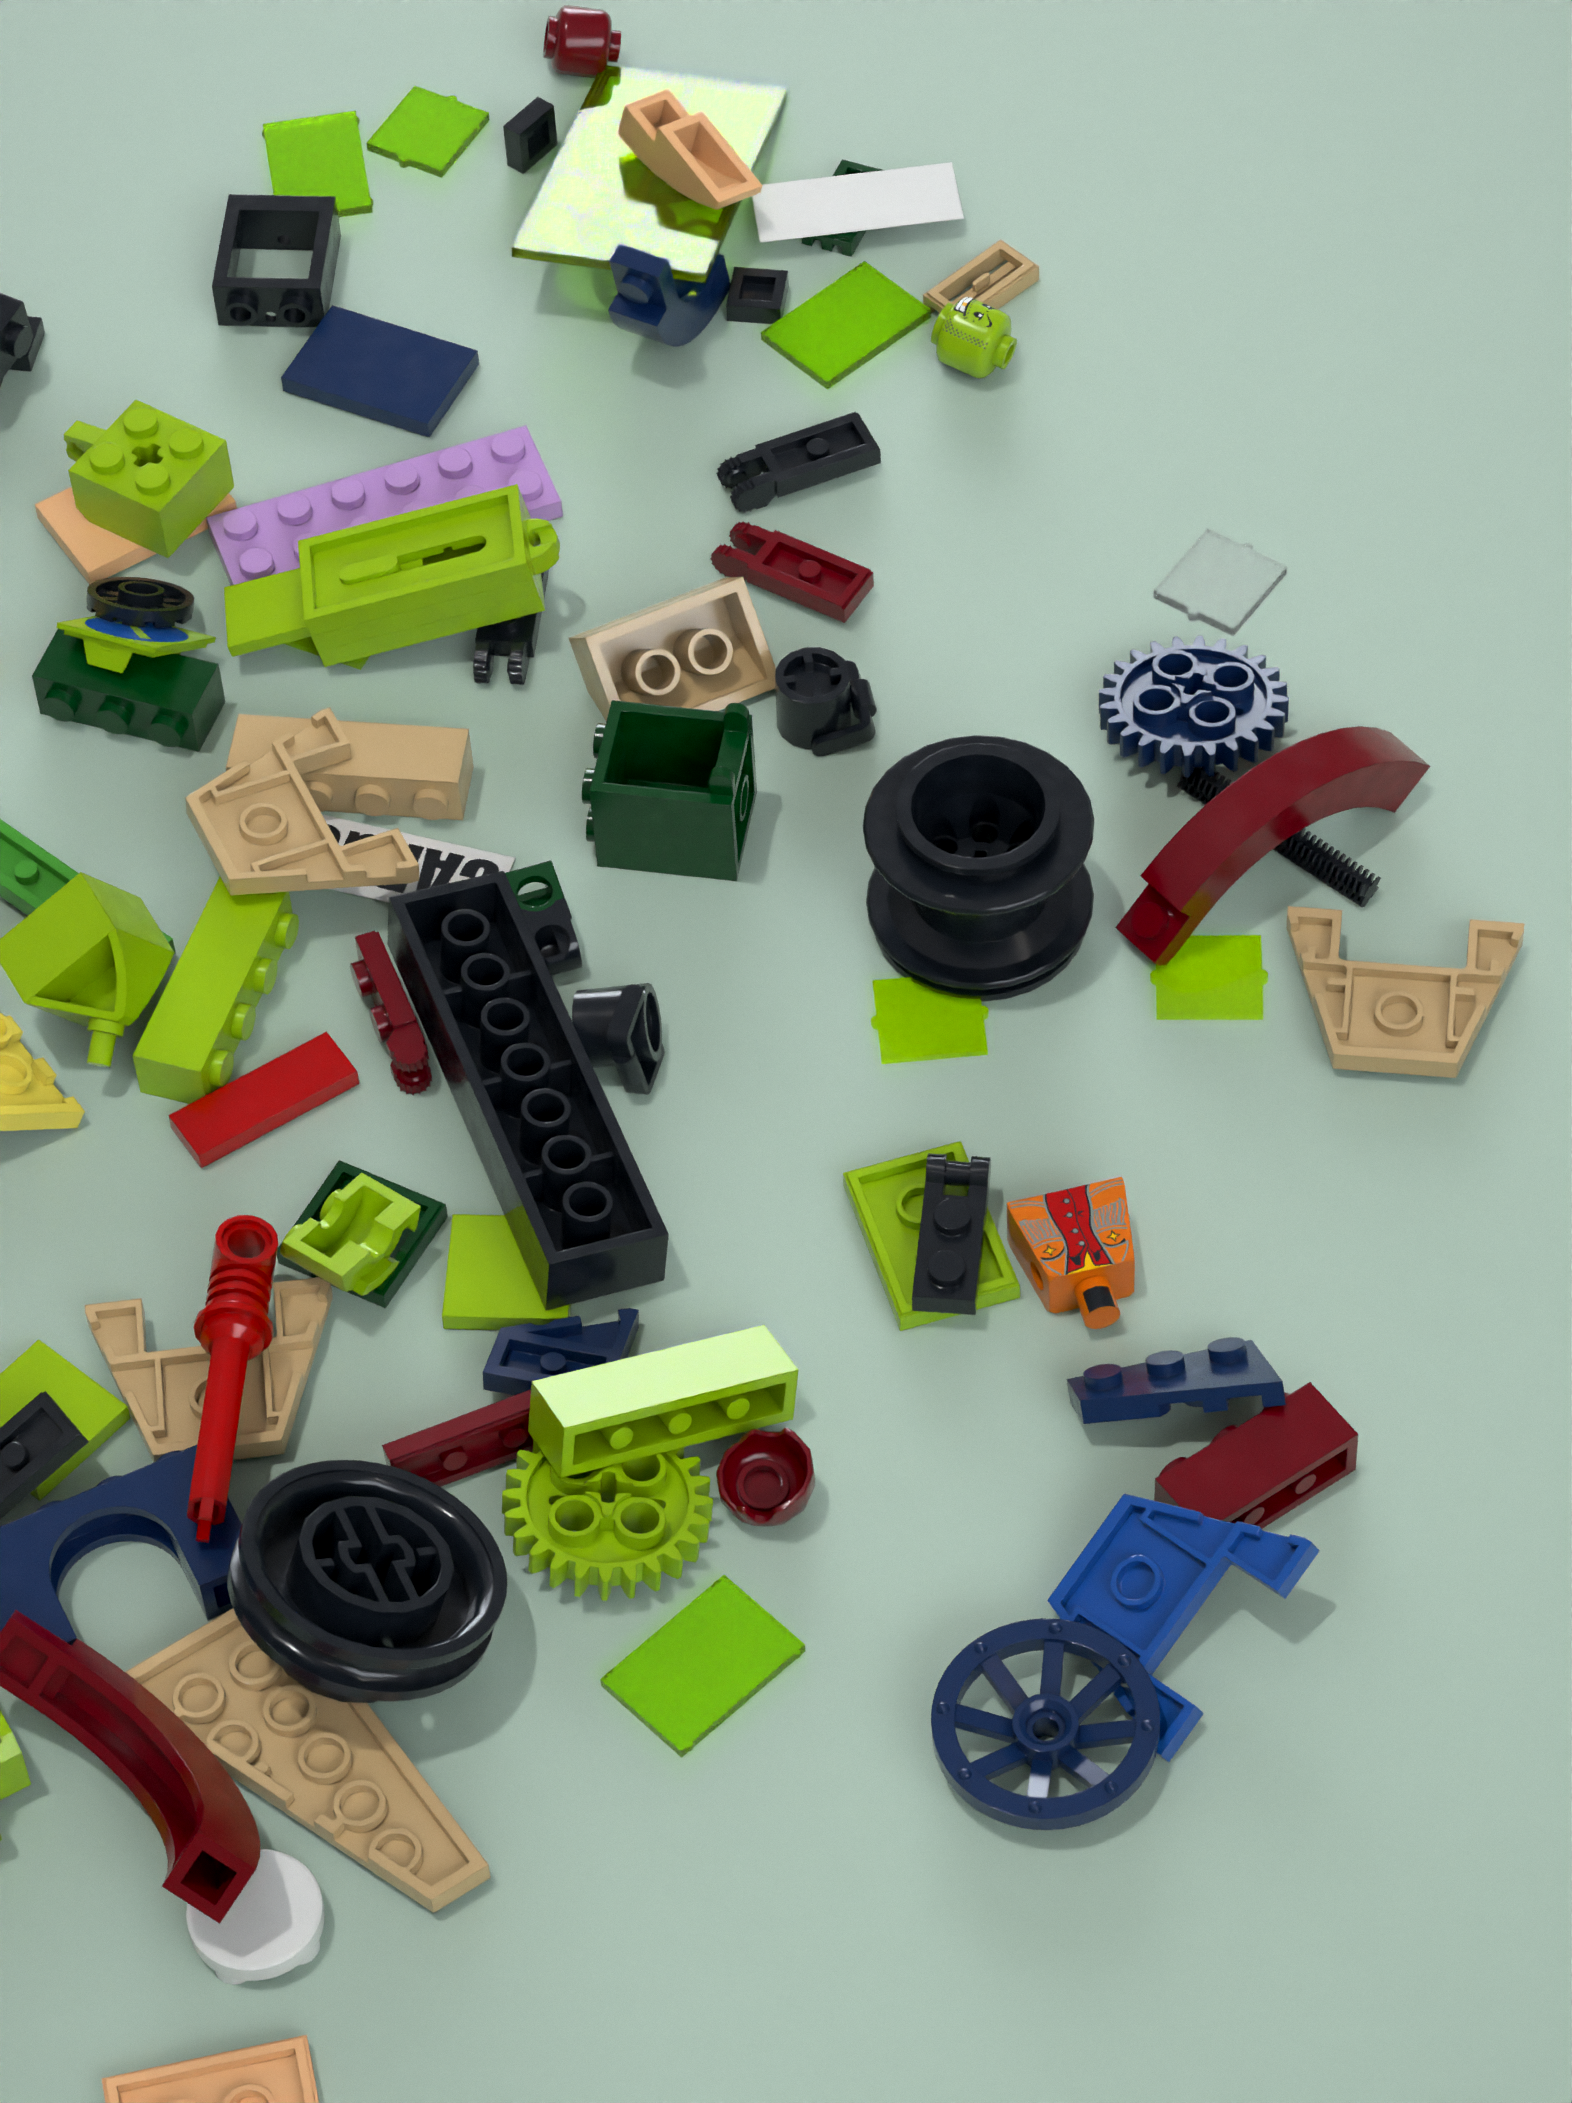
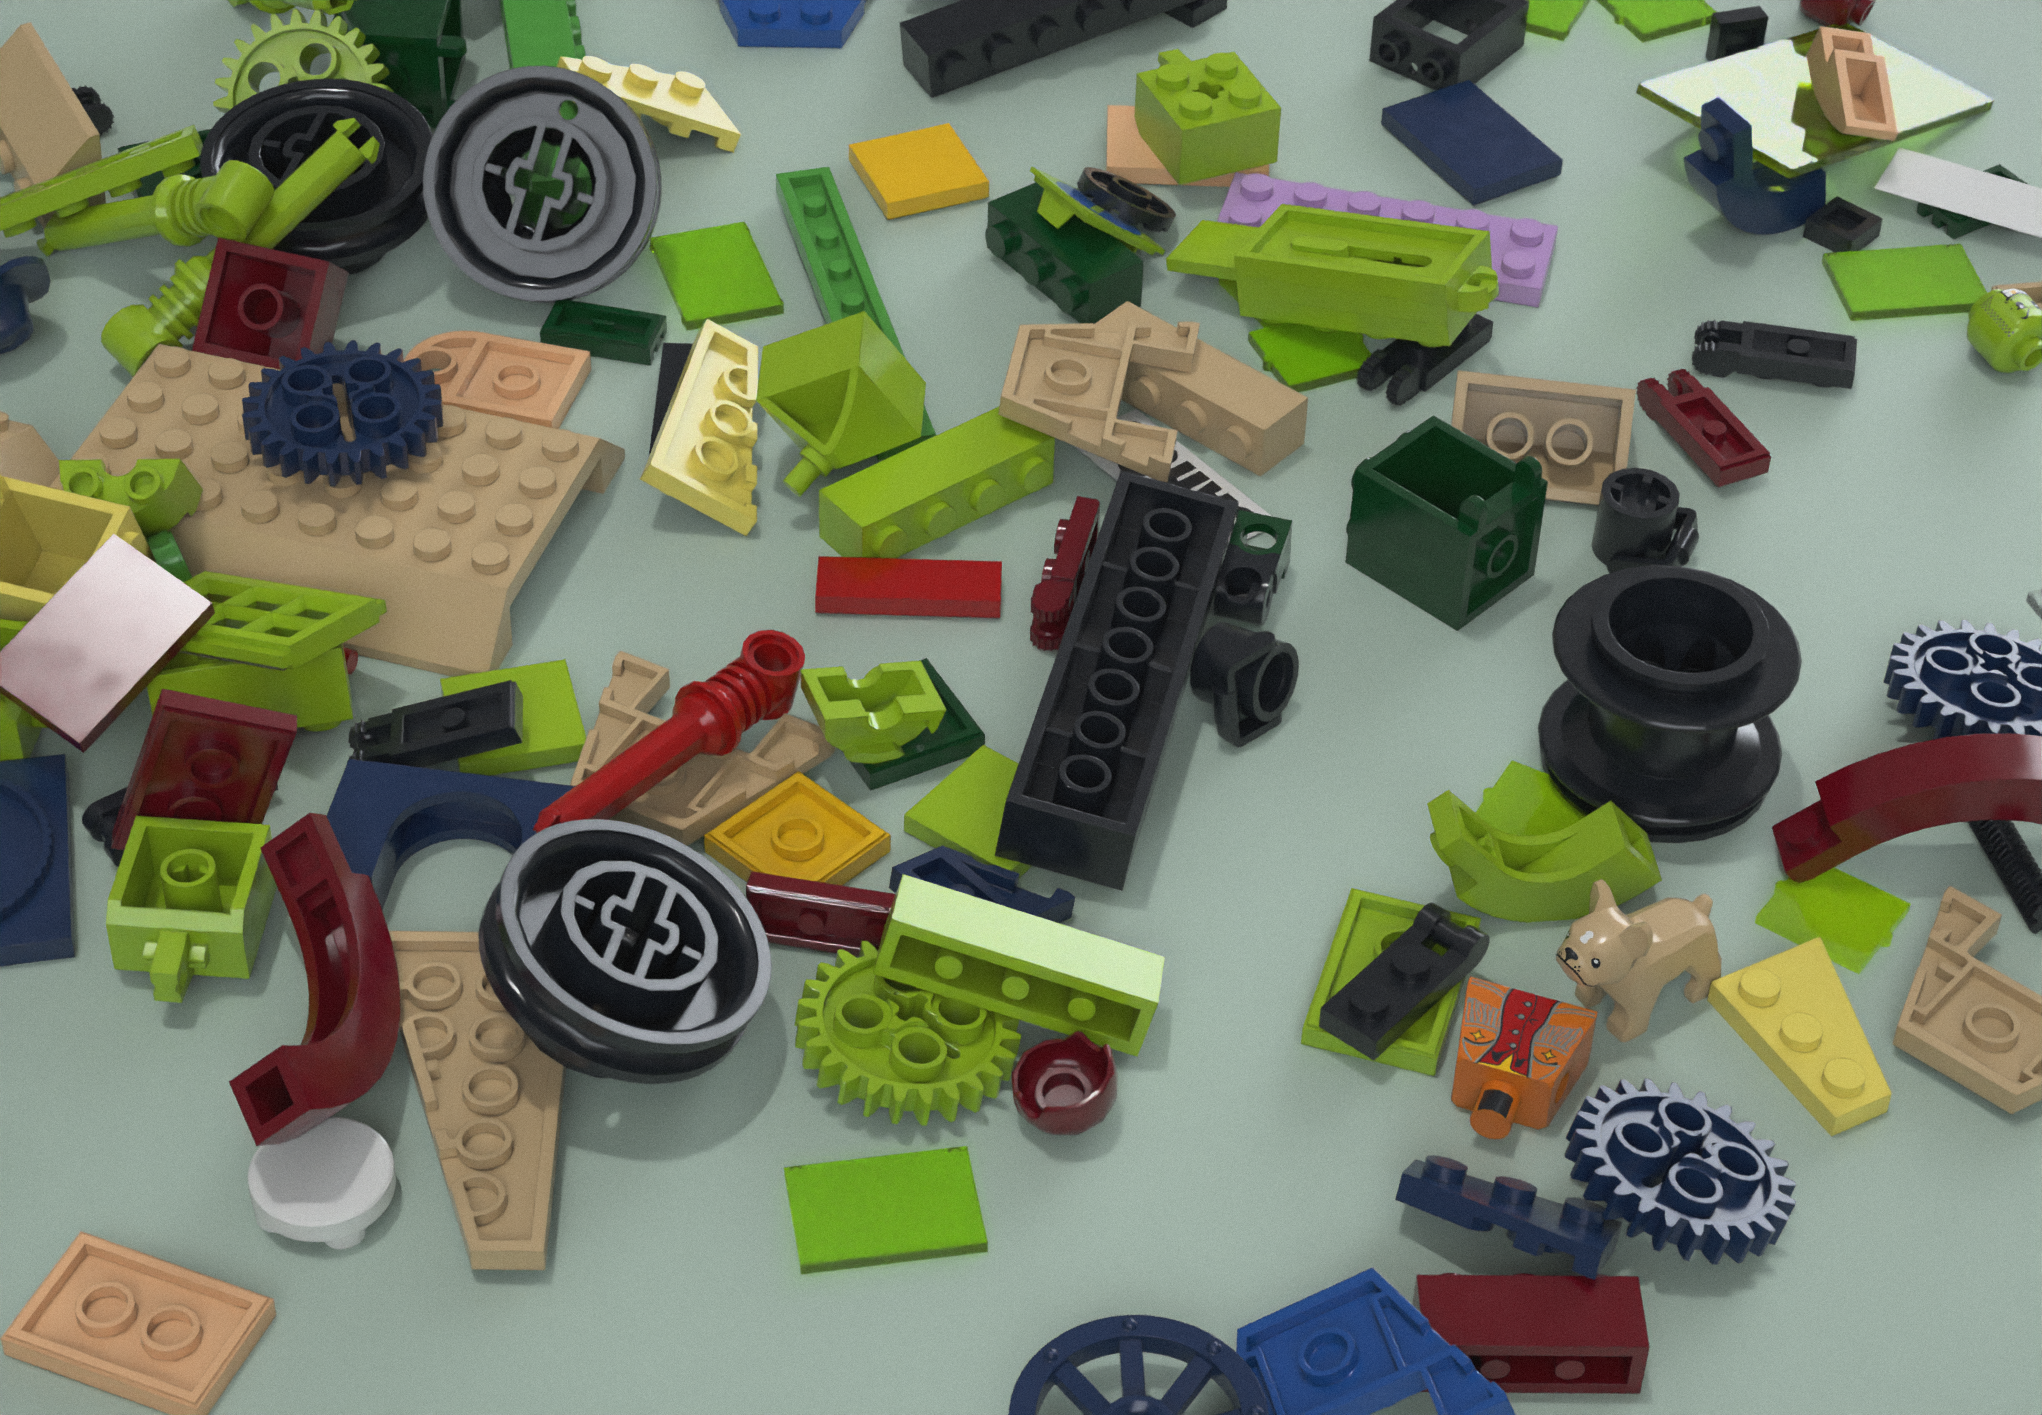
camera: 30 degrees right, 10 degrees down
(369, 1390) = (799, 835): none -> yellow tile
(412, 677) = (1309, 357): none -> clear neon green piece
(985, 1071) = (1541, 874): none -> lime arch
(1115, 1107) = (1638, 955): none -> tan animal
(1265, 1096) = (1806, 1034): none -> light yellow wing
(1315, 1284) = (1714, 1177): none -> dark blue gear

